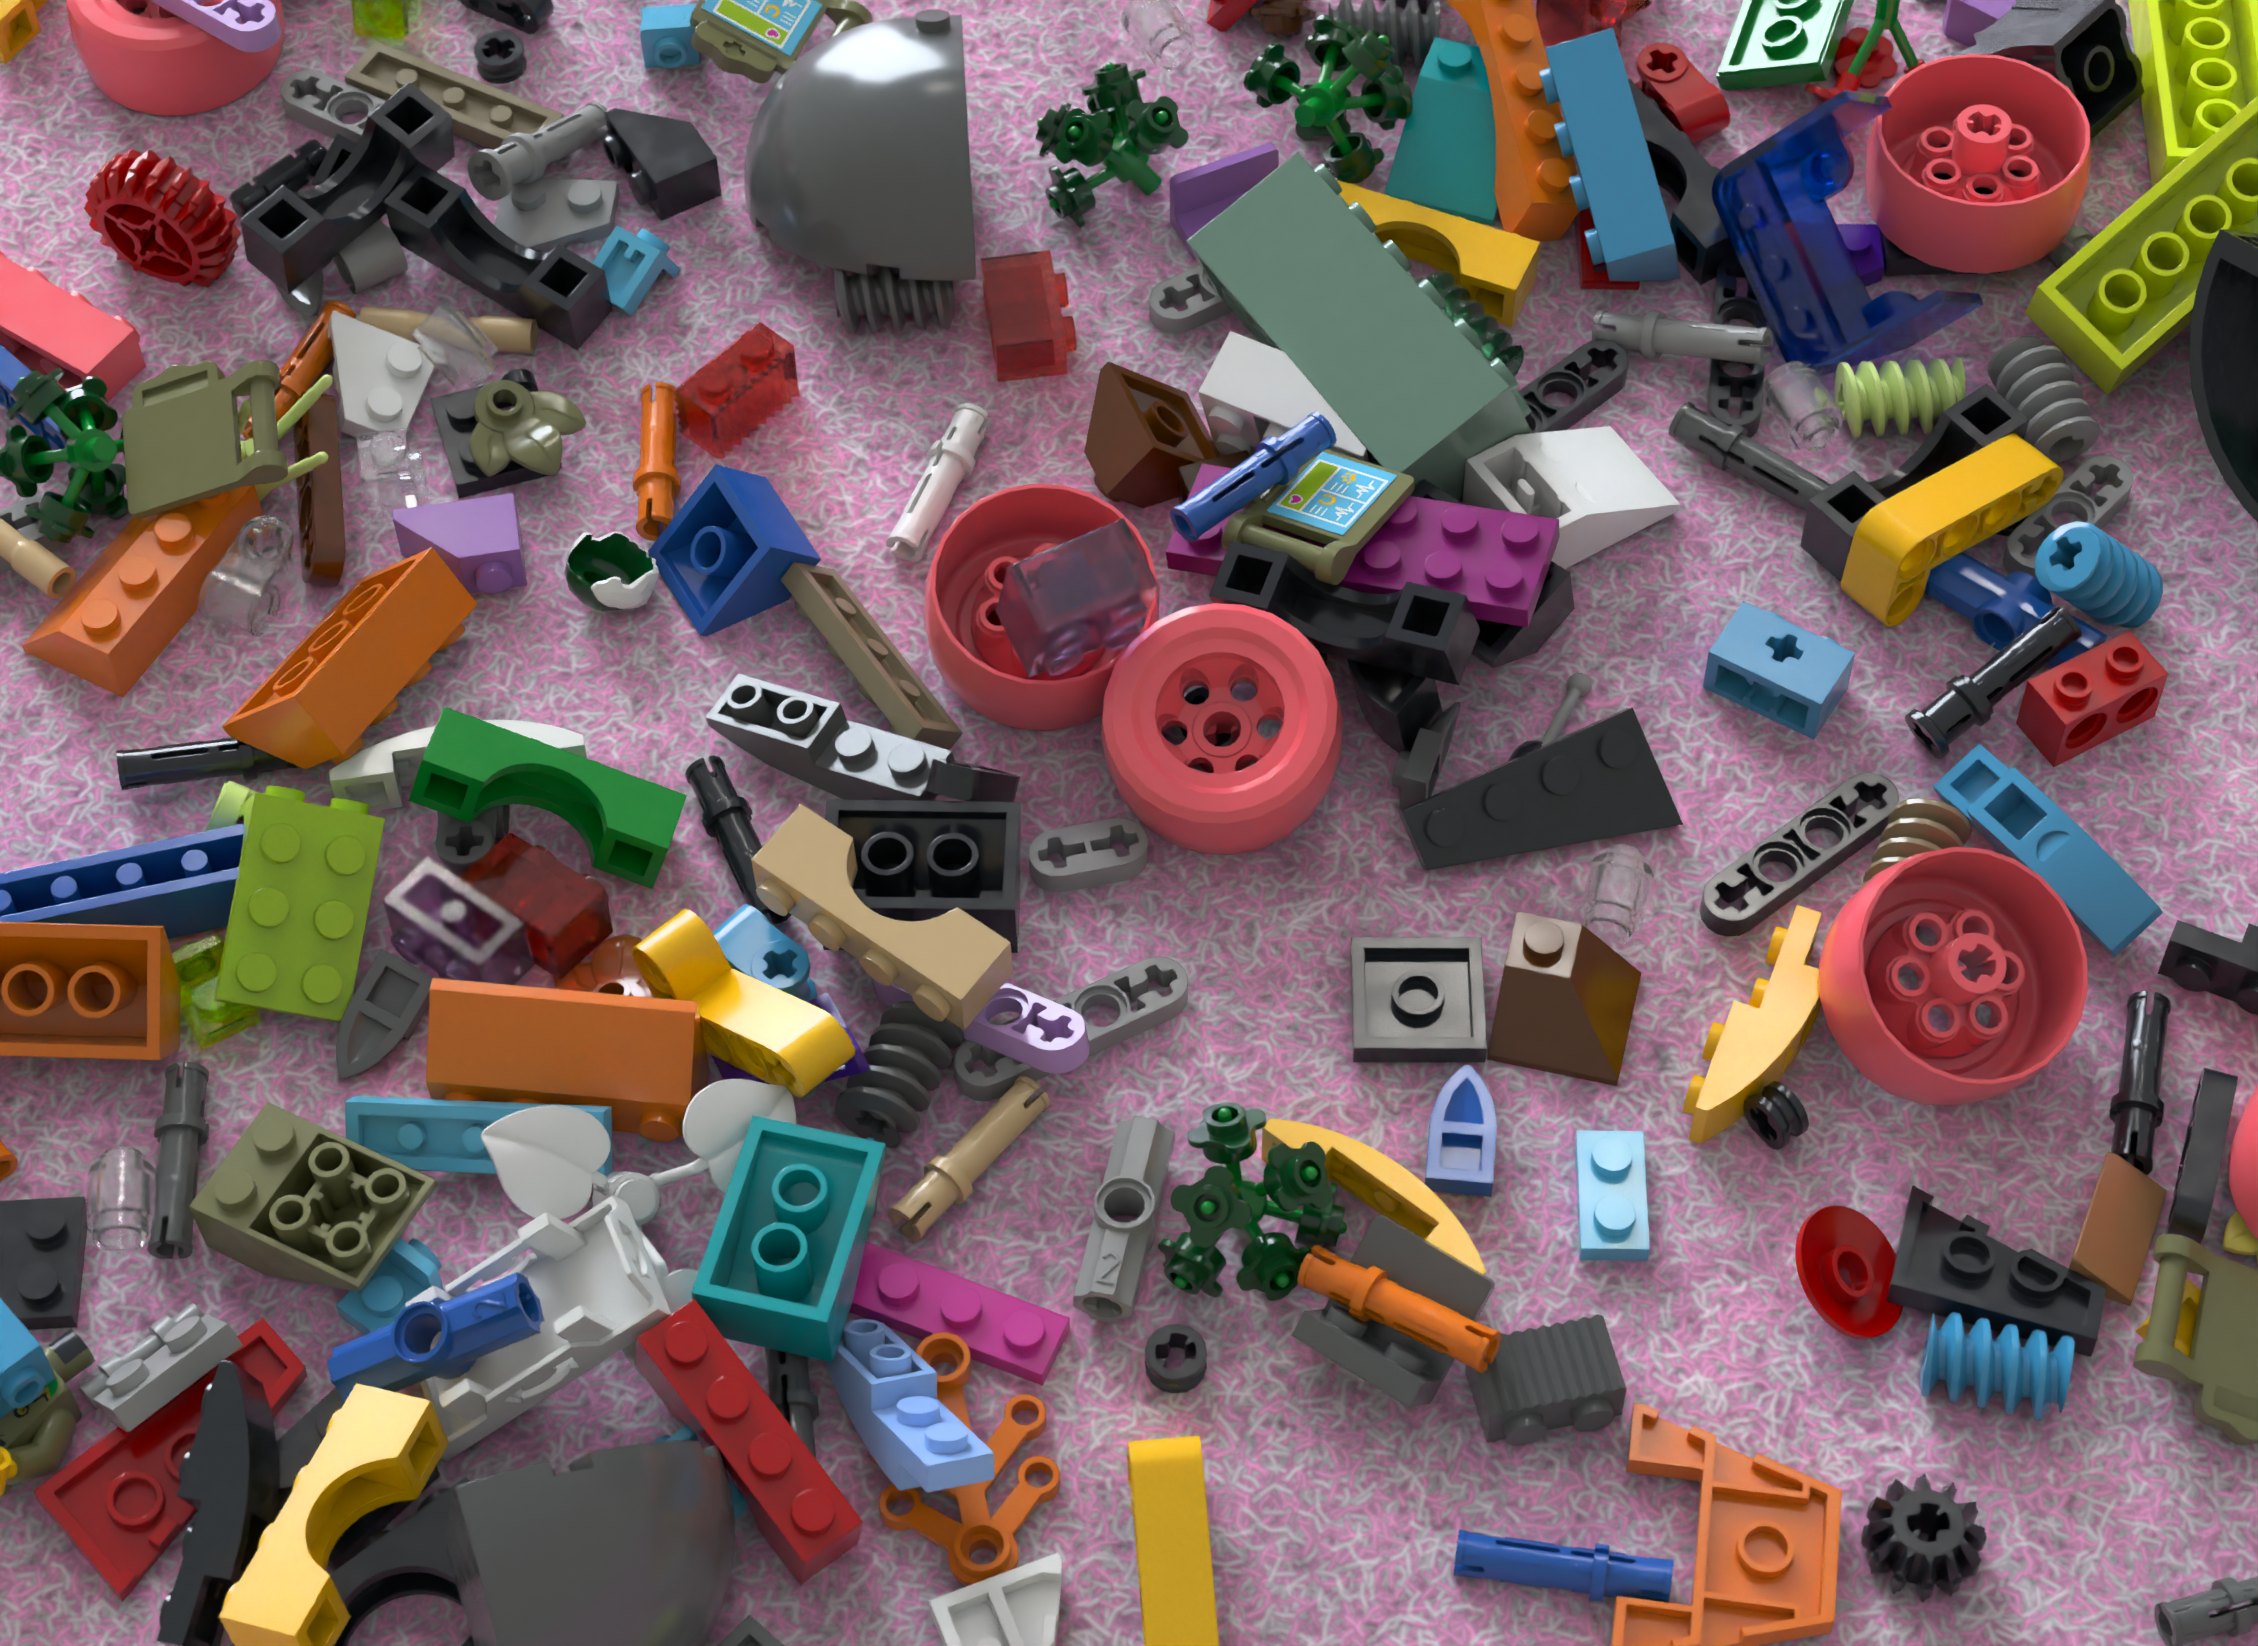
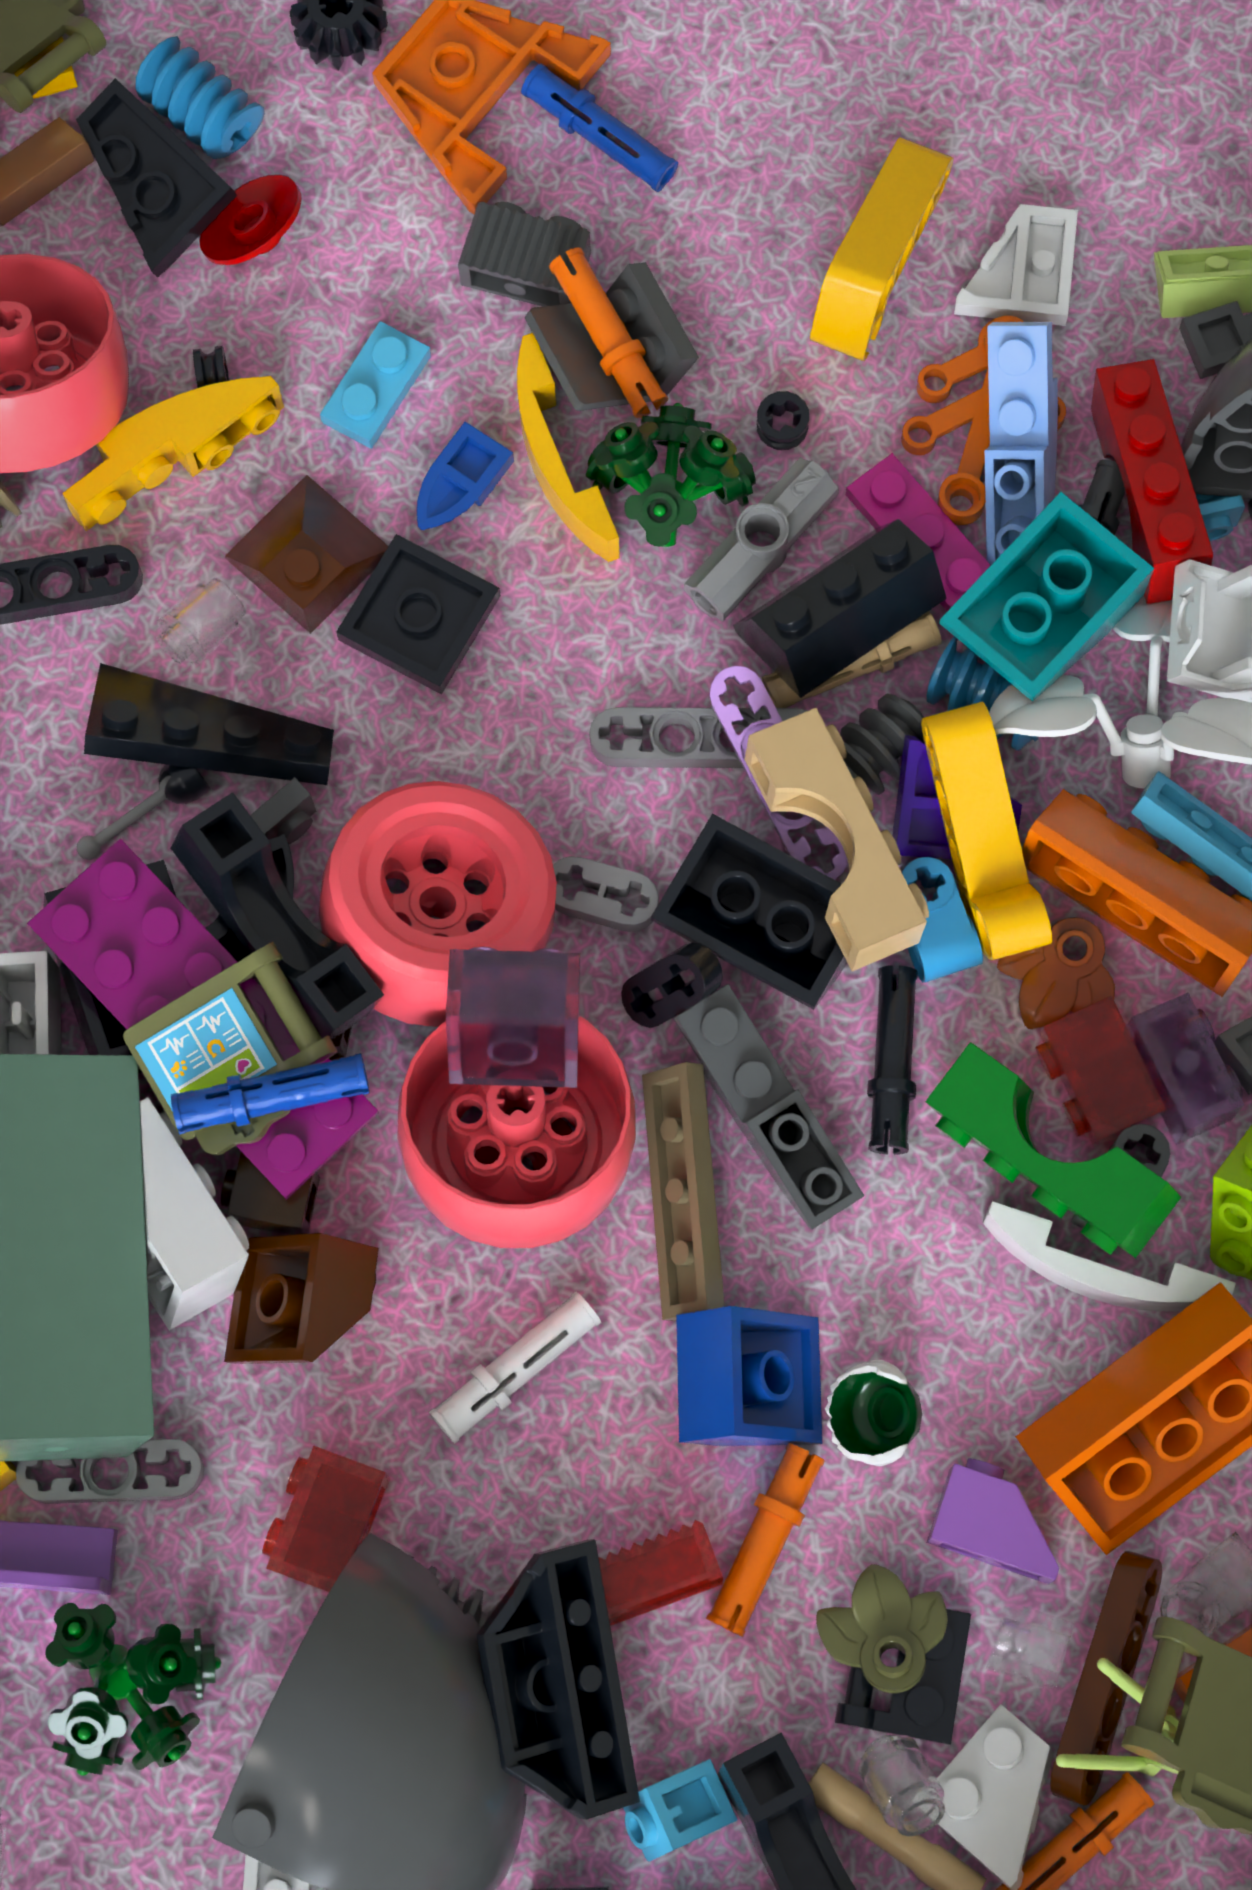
camera: 150 degrees left, 20 degrees up
(762, 255) = (558, 1684): none -> black wedge
(1010, 1177) = (845, 607): none -> black slope

